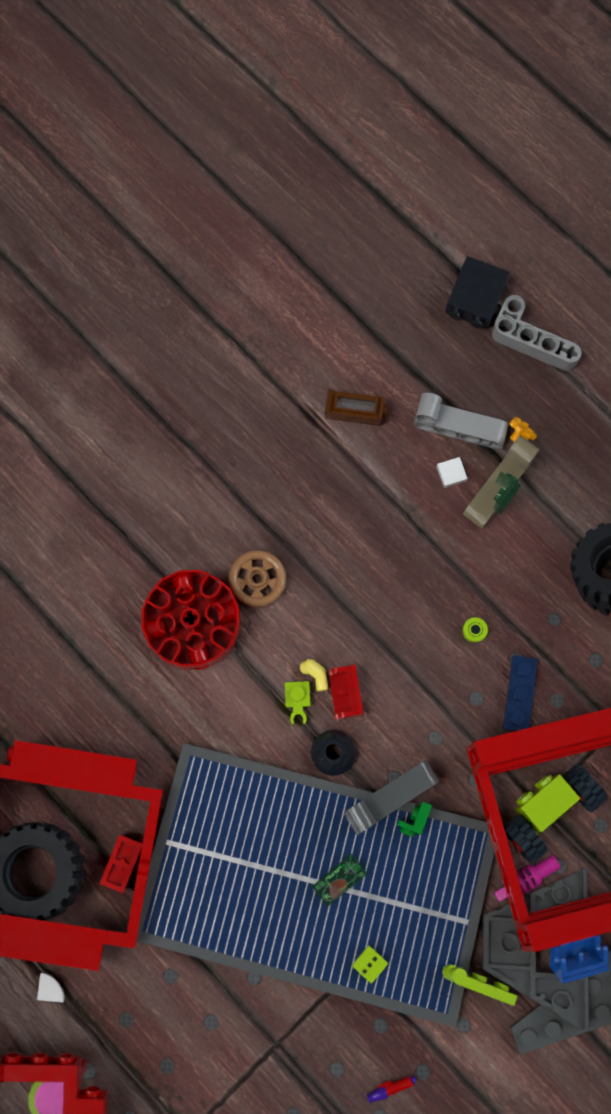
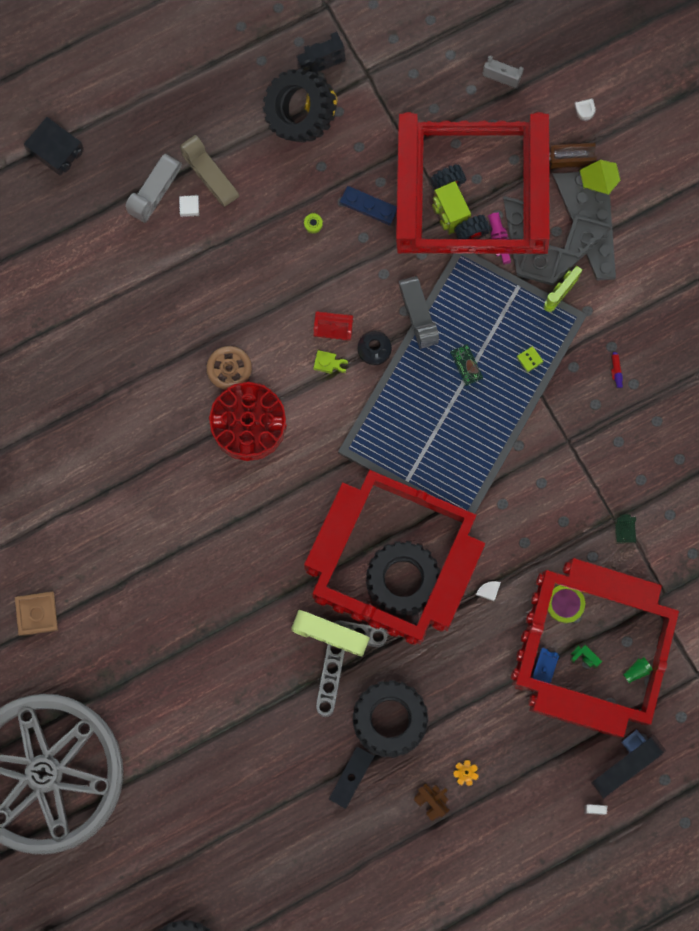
camera: 75 degrees left, 0 degrees up
(121, 863) = (413, 515): red hinge -> none
(317, 671) = (312, 342): light yellow arm -> none
(355, 408) = (118, 260): reddish brown window -> none
(419, 816) = (438, 296): green bracket -> none
(504, 496) = (221, 168): clear green bracket -> none
(521, 429) = (172, 146): light orange plant -> none
(538, 337) = (103, 113): light grey beam -> none
(579, 959) = (562, 217): blue hinge -> none

